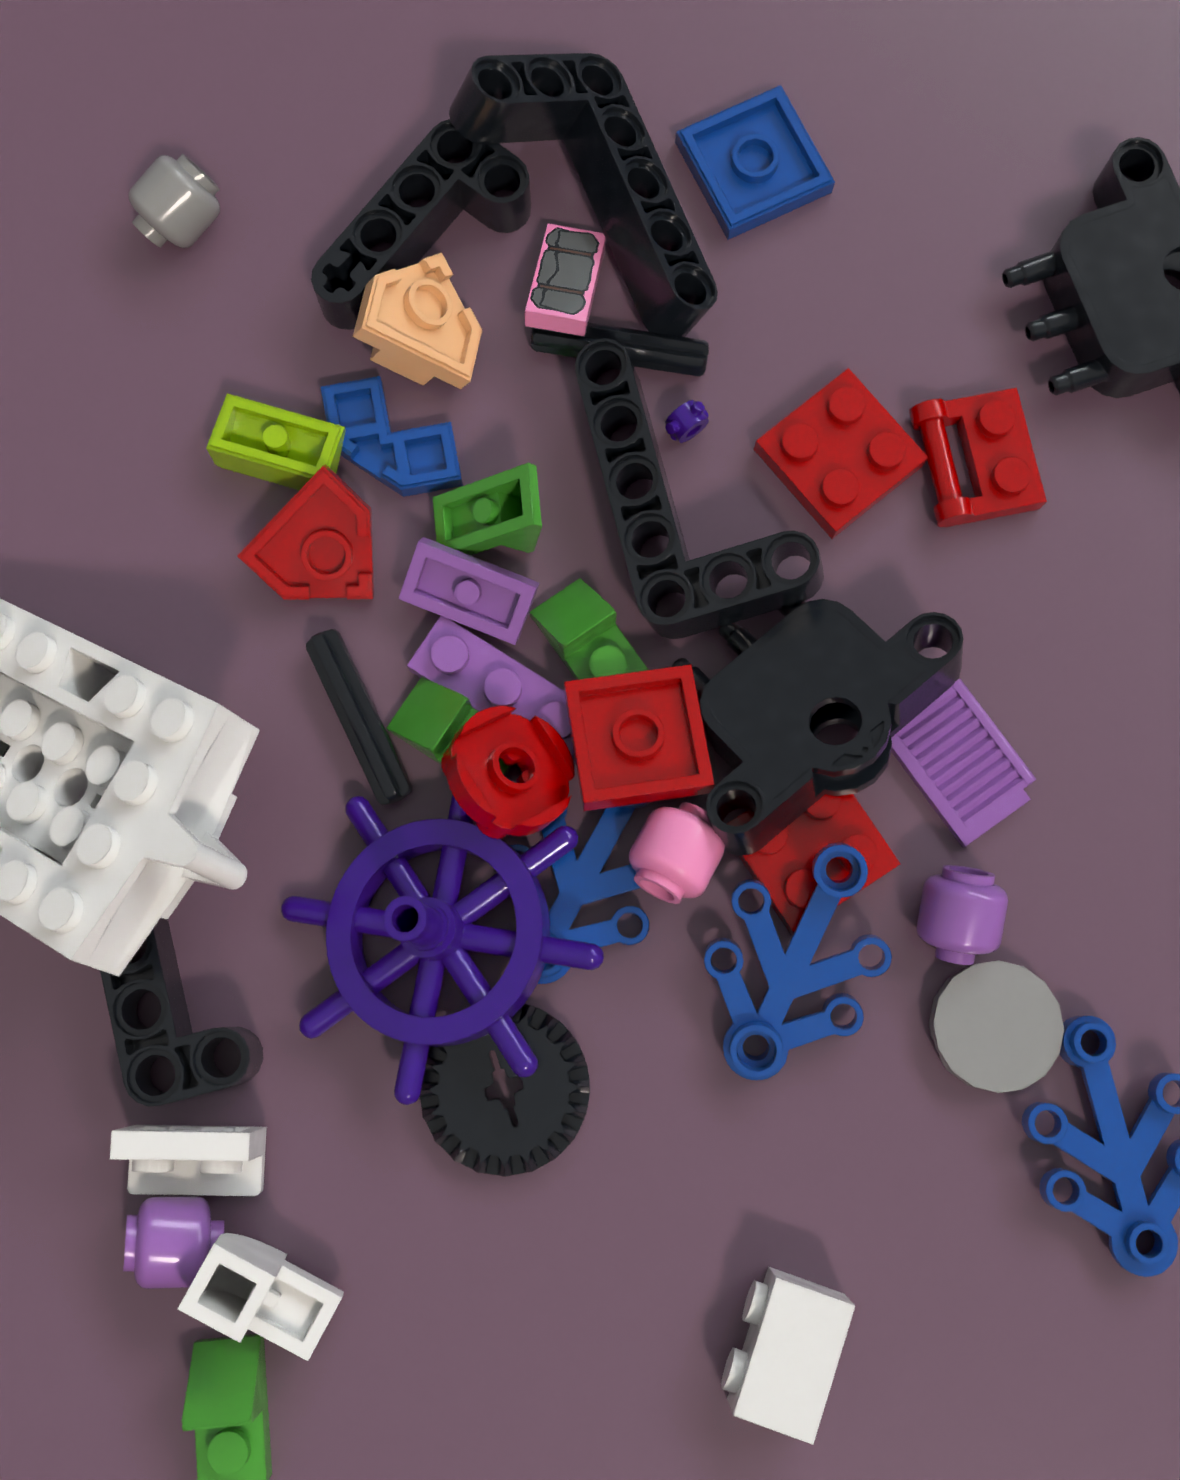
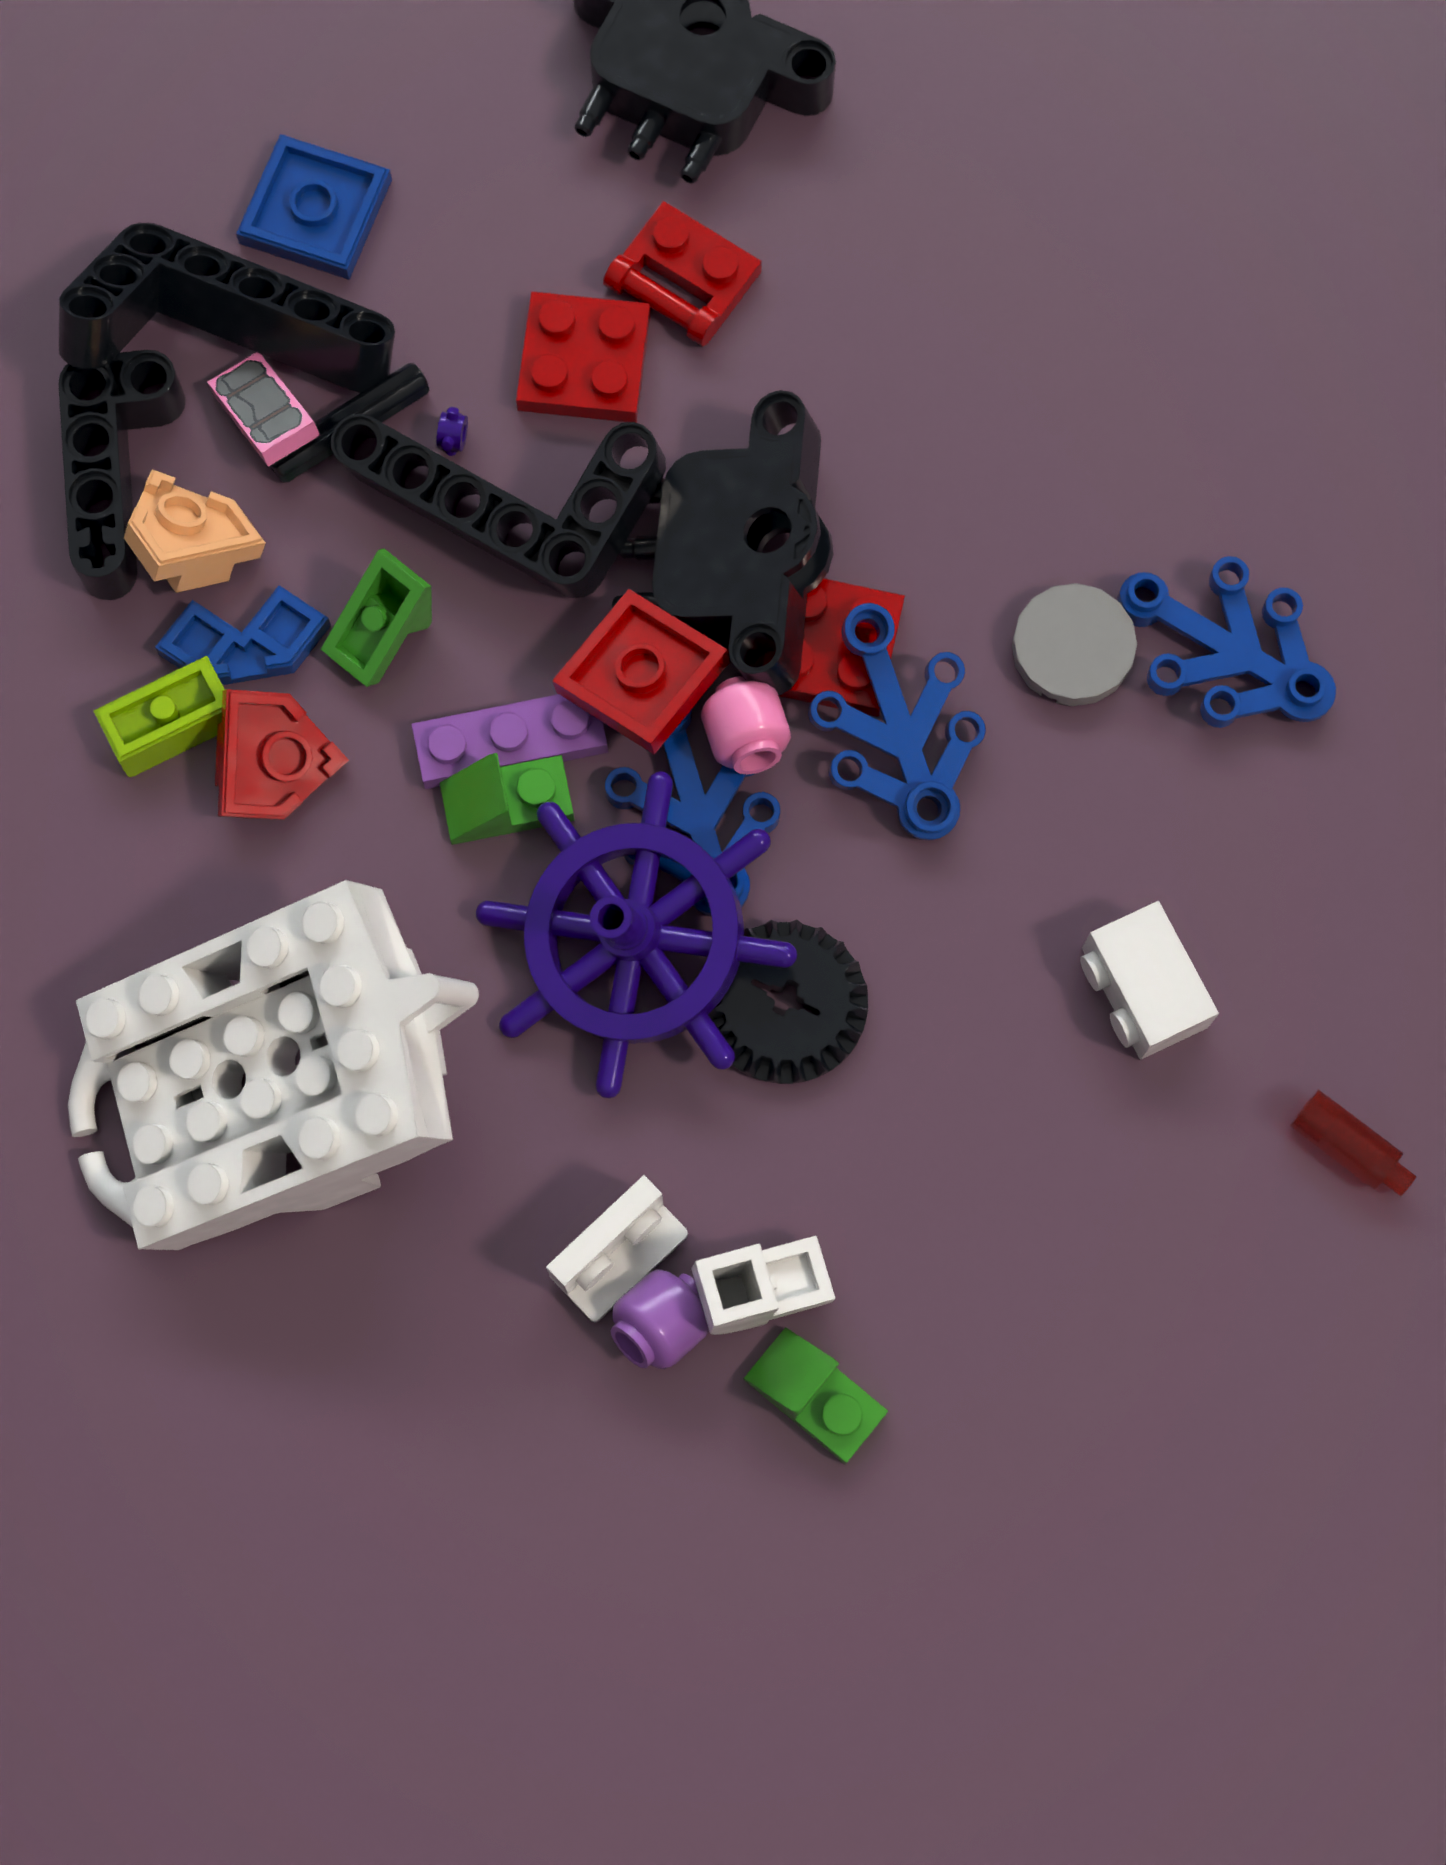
camera: 45 degrees left, 5 degrees down
(172, 1033) = (514, 1187): black beam -> none
(358, 717) = (423, 850): black axle -> none
(468, 590) = (416, 687): medium lavender plate -> none
(484, 791) = (550, 789): red plate -> none
(586, 633) = (526, 644): bright green slope -> none
(962, 764) = (880, 493): medium lavender window -> none
(962, 914) = (978, 588): medium lavender head -> none

